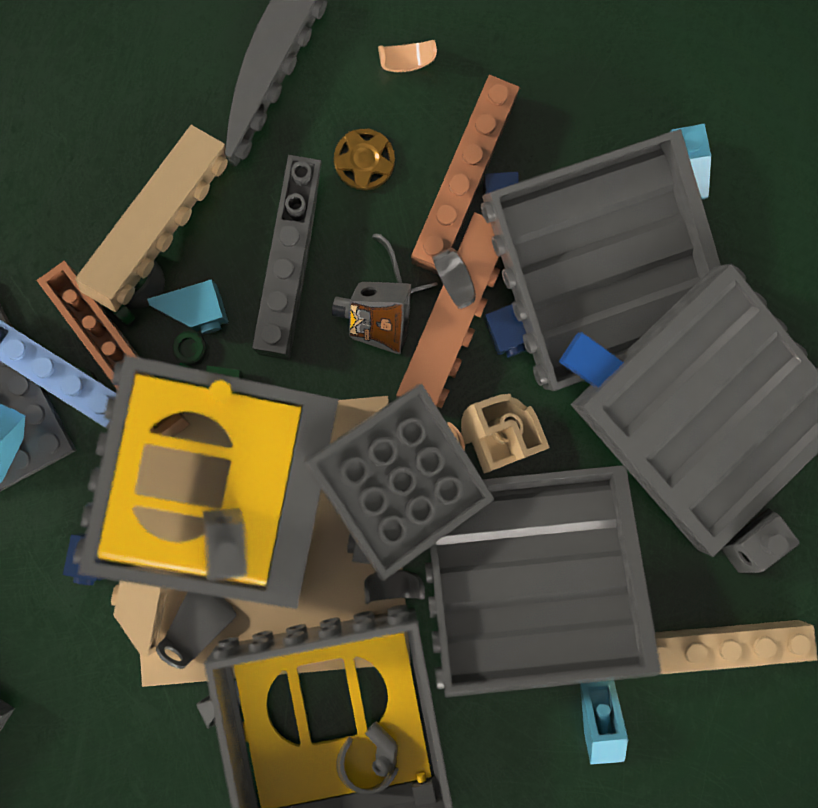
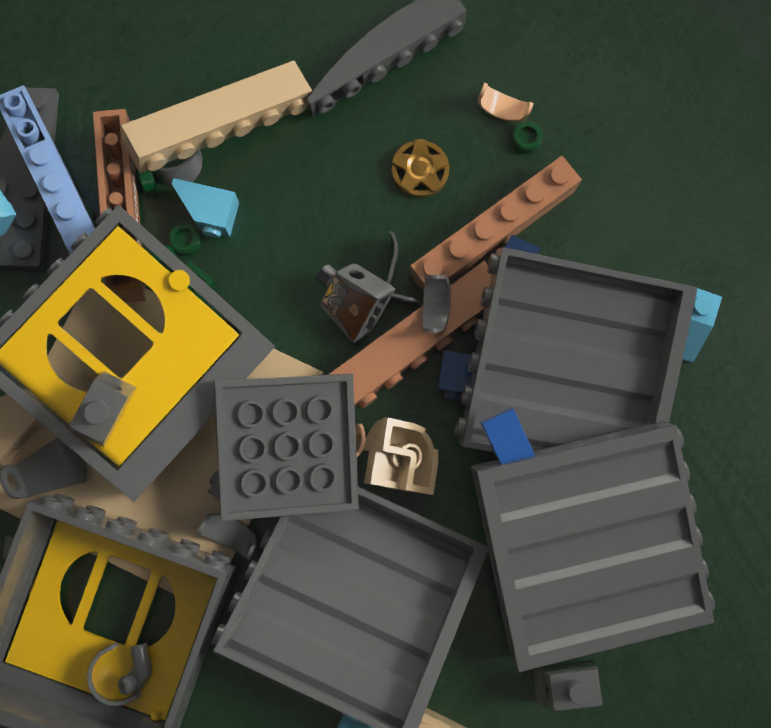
camera: 25 degrees right, 5 degrees down
(287, 259) = (306, 213): dark grey slope -> none
(444, 74) = (526, 137): none -> dark green tile

